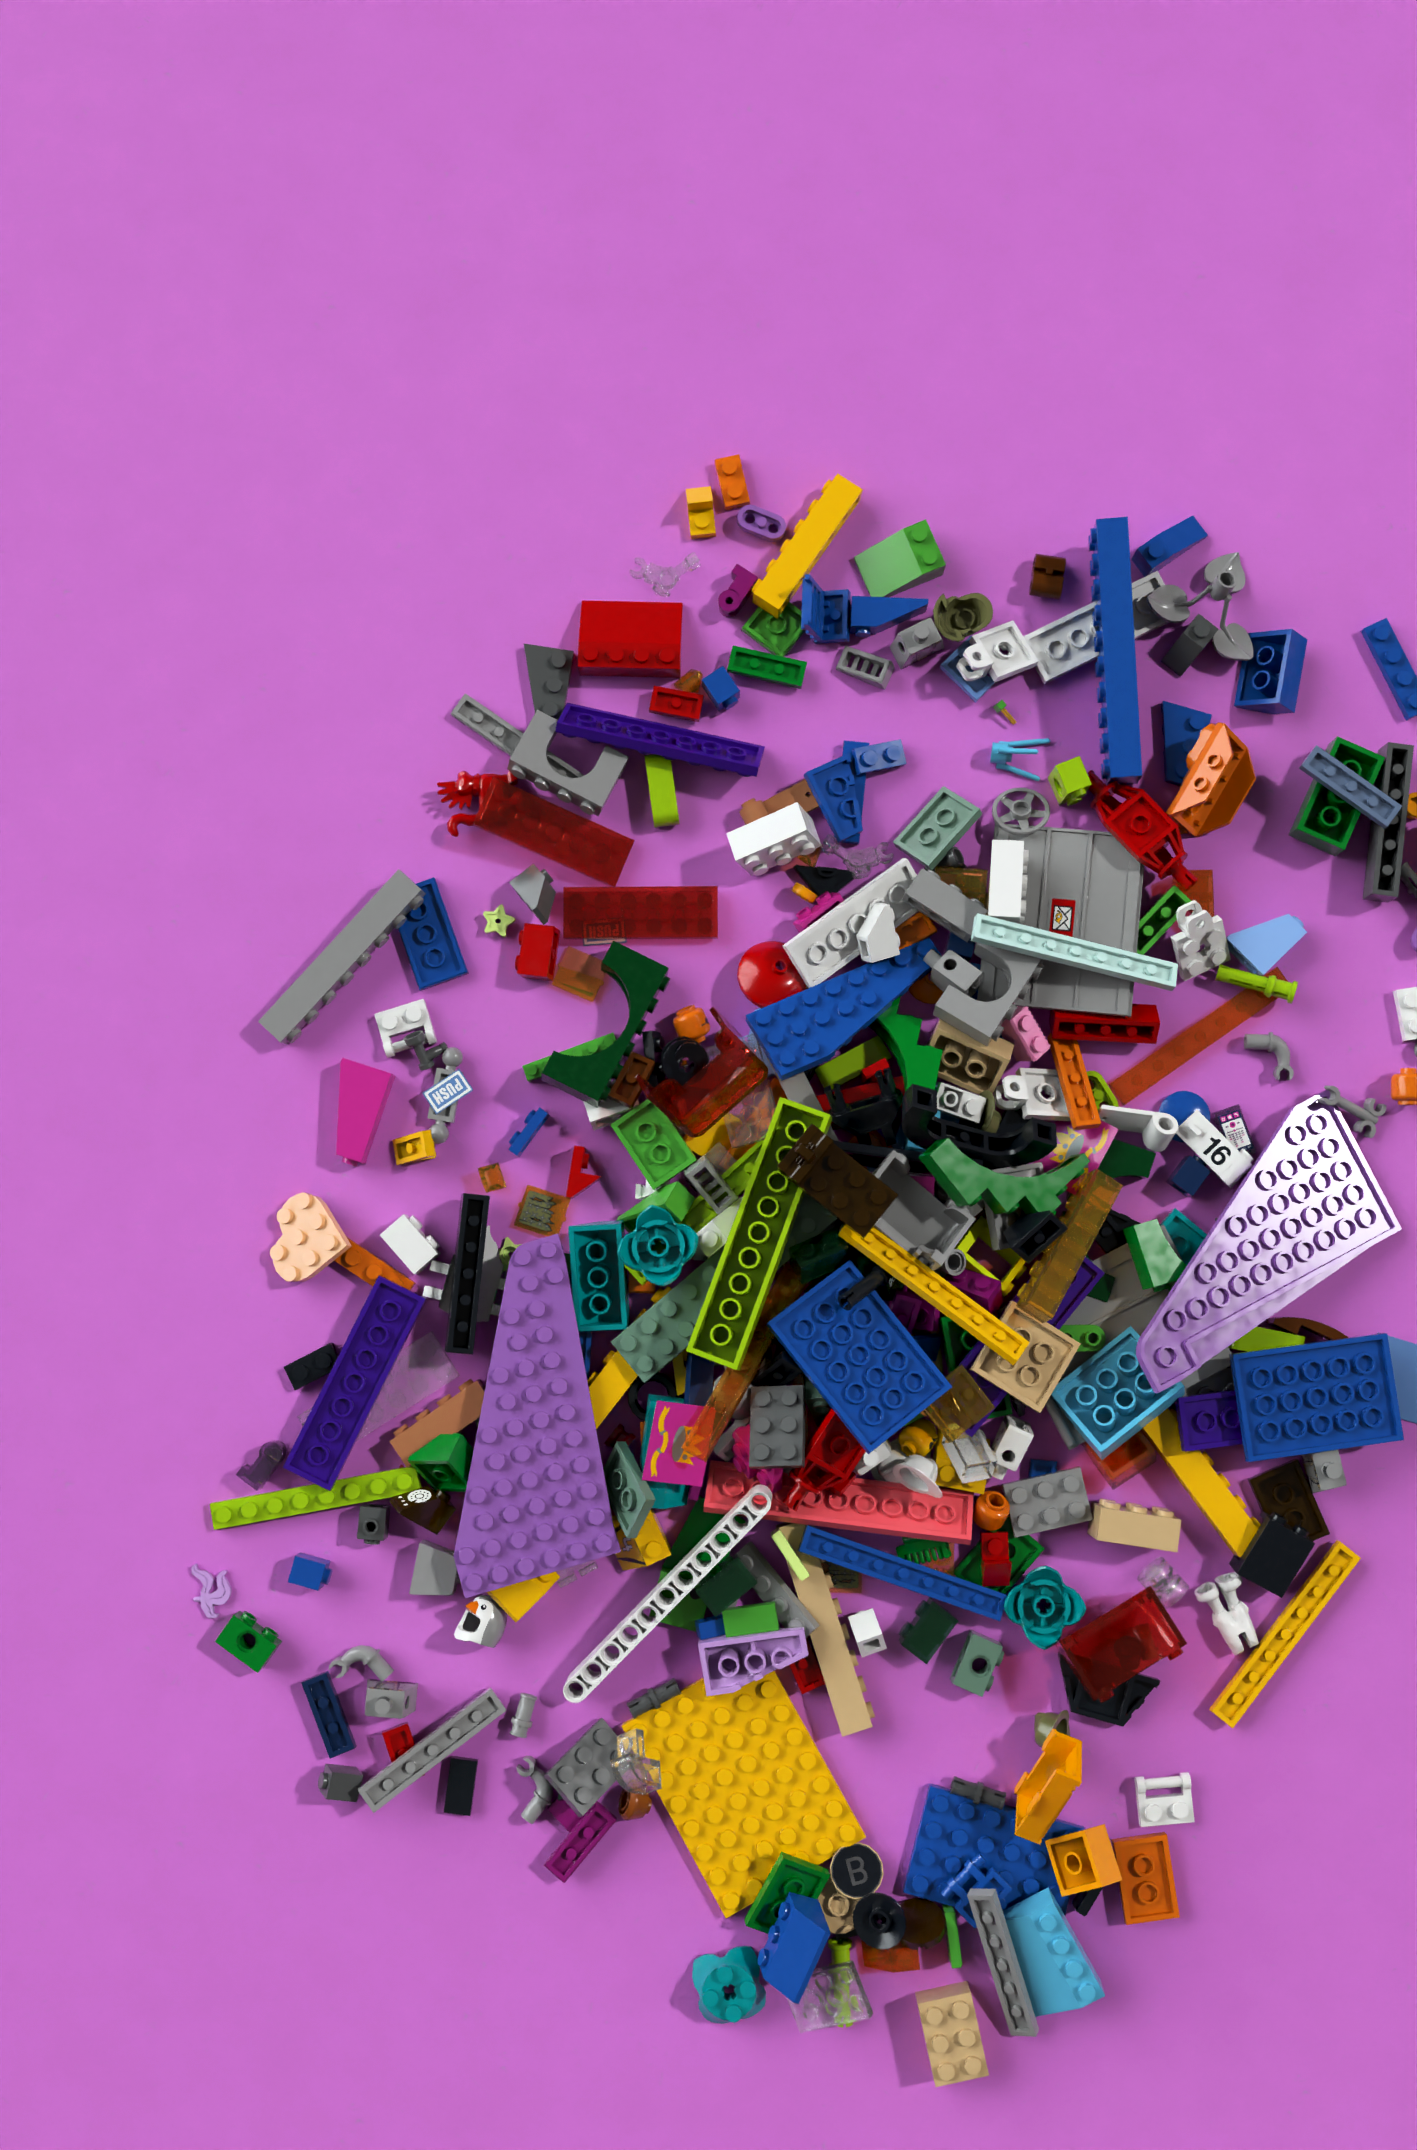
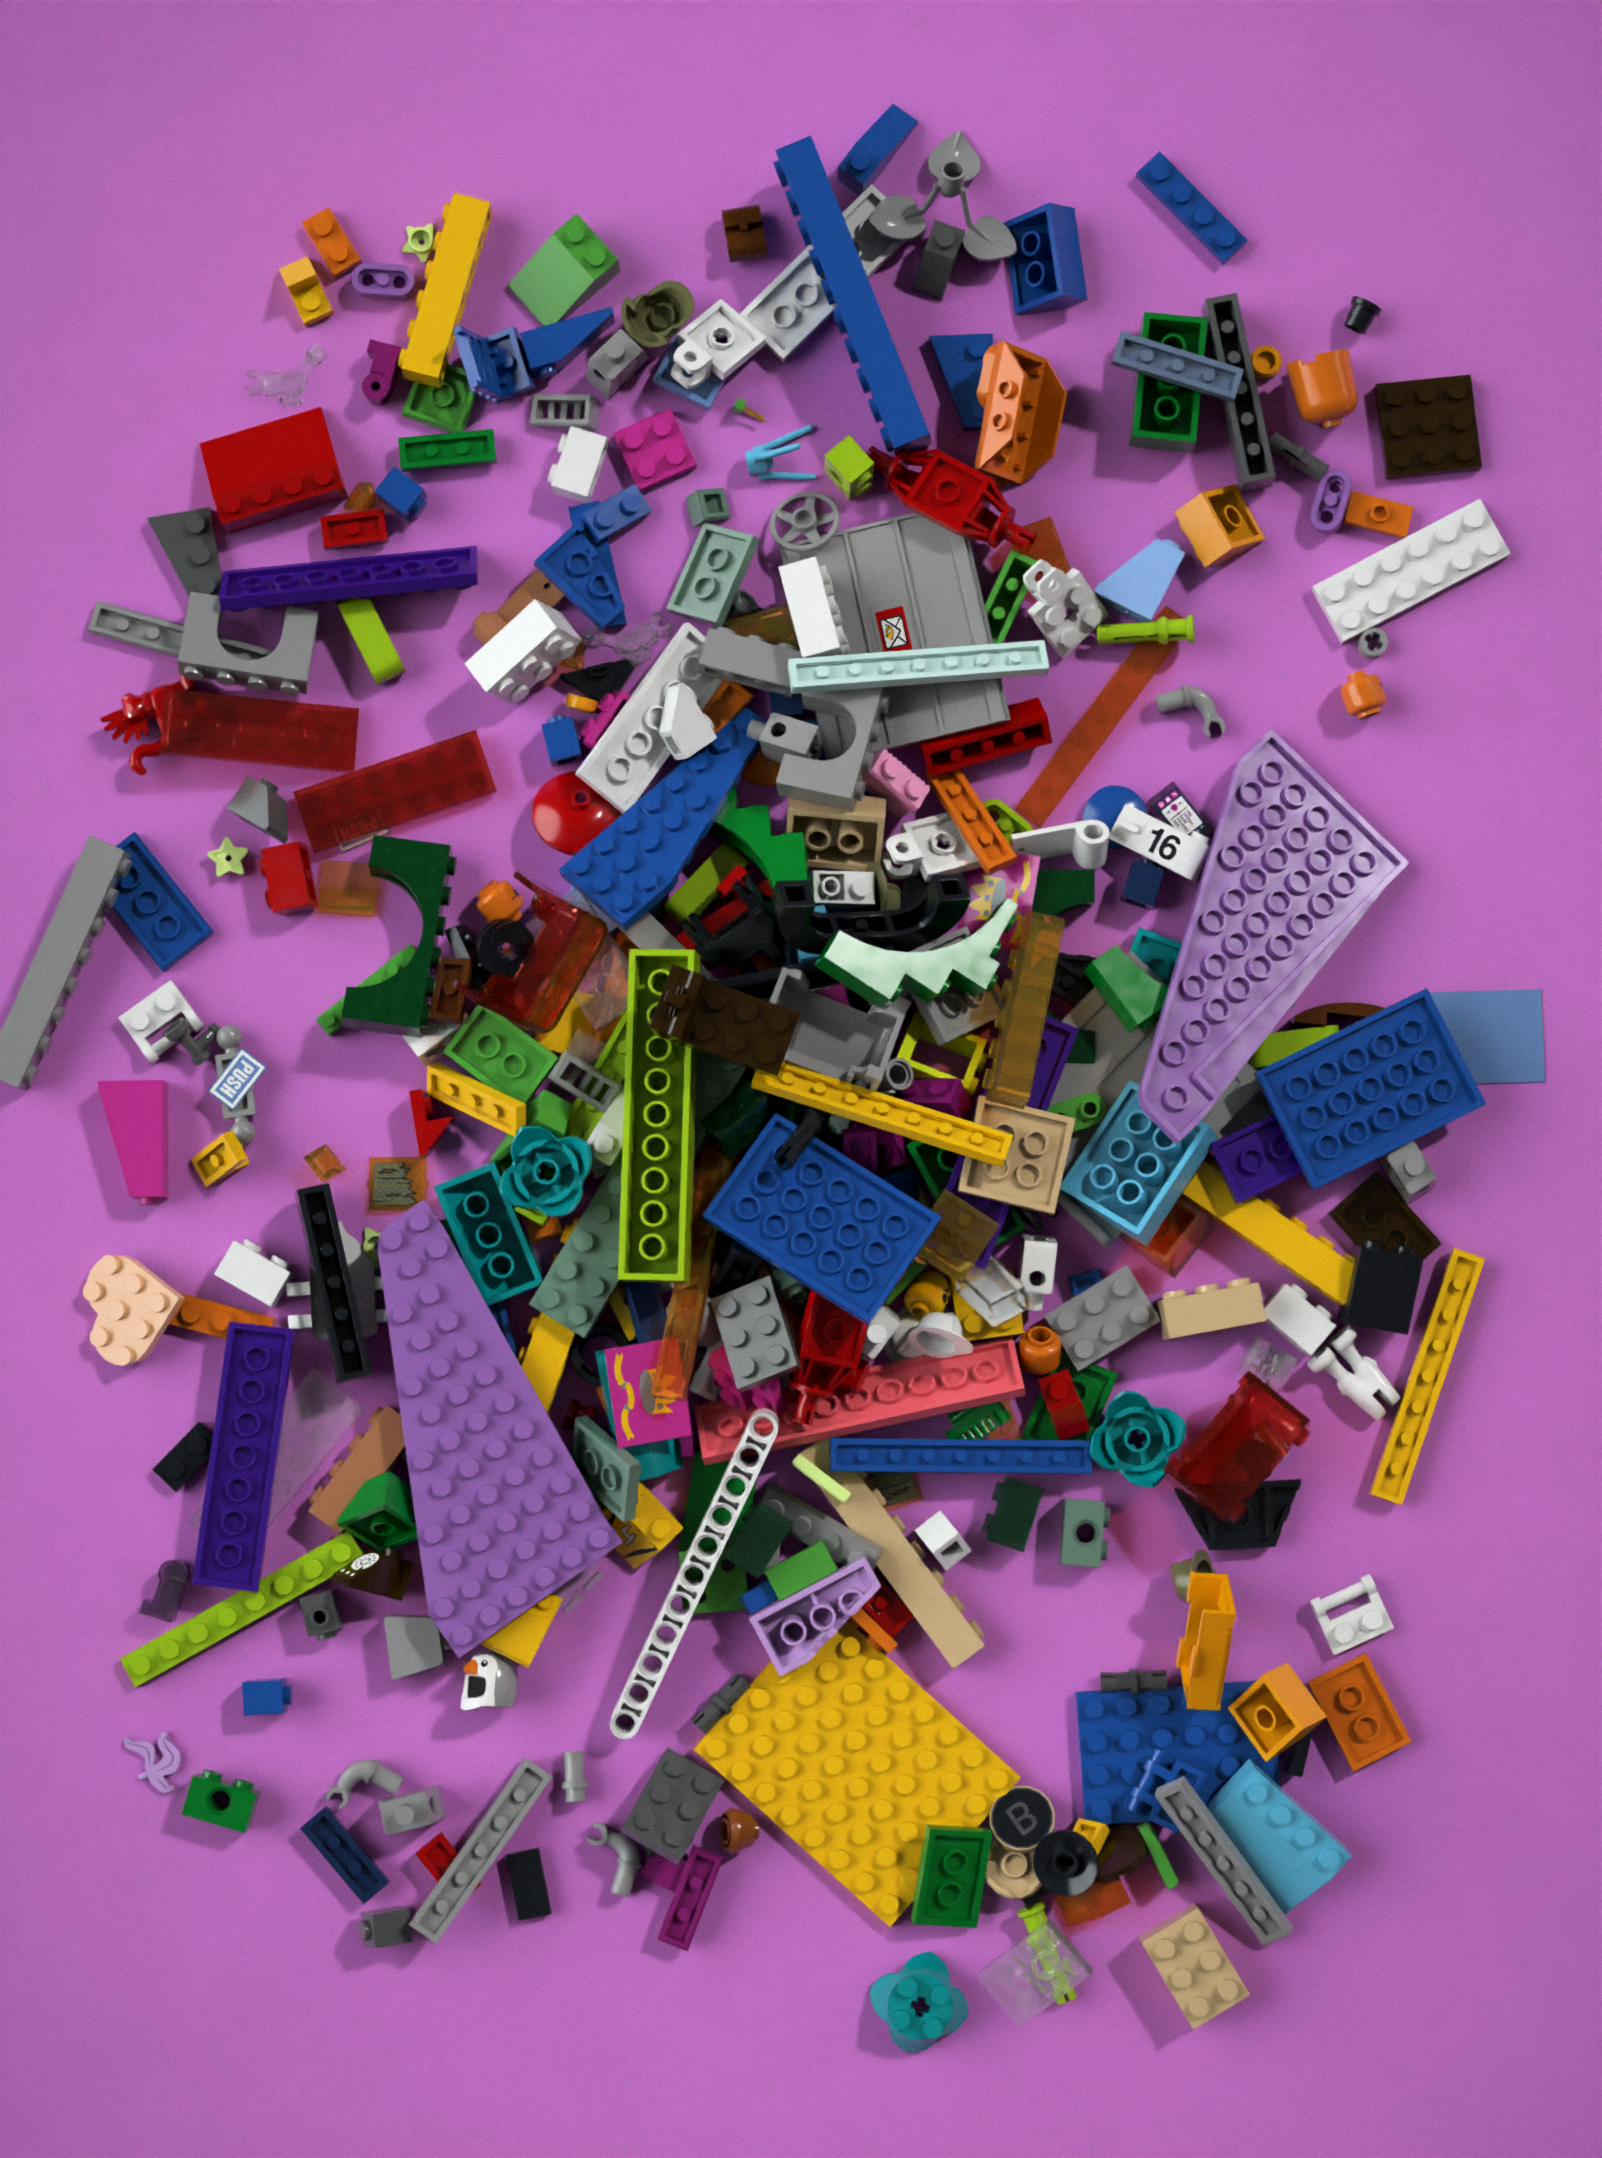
camera: 25 degrees left, 0 degrees up
(534, 1122) = (353, 1081): blue plate -> none
(623, 1169) = (475, 1098): none -> yellow plate
(631, 1768) = (722, 1789): clear brick -> none
(780, 916) = (561, 740): none -> blue brick
(791, 1688) = (877, 1636): none -> orange plate
(792, 504) = (414, 236): none -> yellowish green plate
(794, 1945) = (975, 1924): blue slope -> none
(863, 710) = (578, 465): none -> white brick
(907, 1900) = (1093, 1831): none -> yellow tile
(924, 718) = (654, 450): none -> dark pink plate
(949, 774) = (707, 506): none -> sand green slope
(1034, 1233) = (978, 1009): black slope -> none
(1199, 1556) = (1297, 1319): none -> white brick
(1338, 919) = (1219, 525): none -> light orange slope
(1368, 1114) = (1327, 743): light grey bar -> none

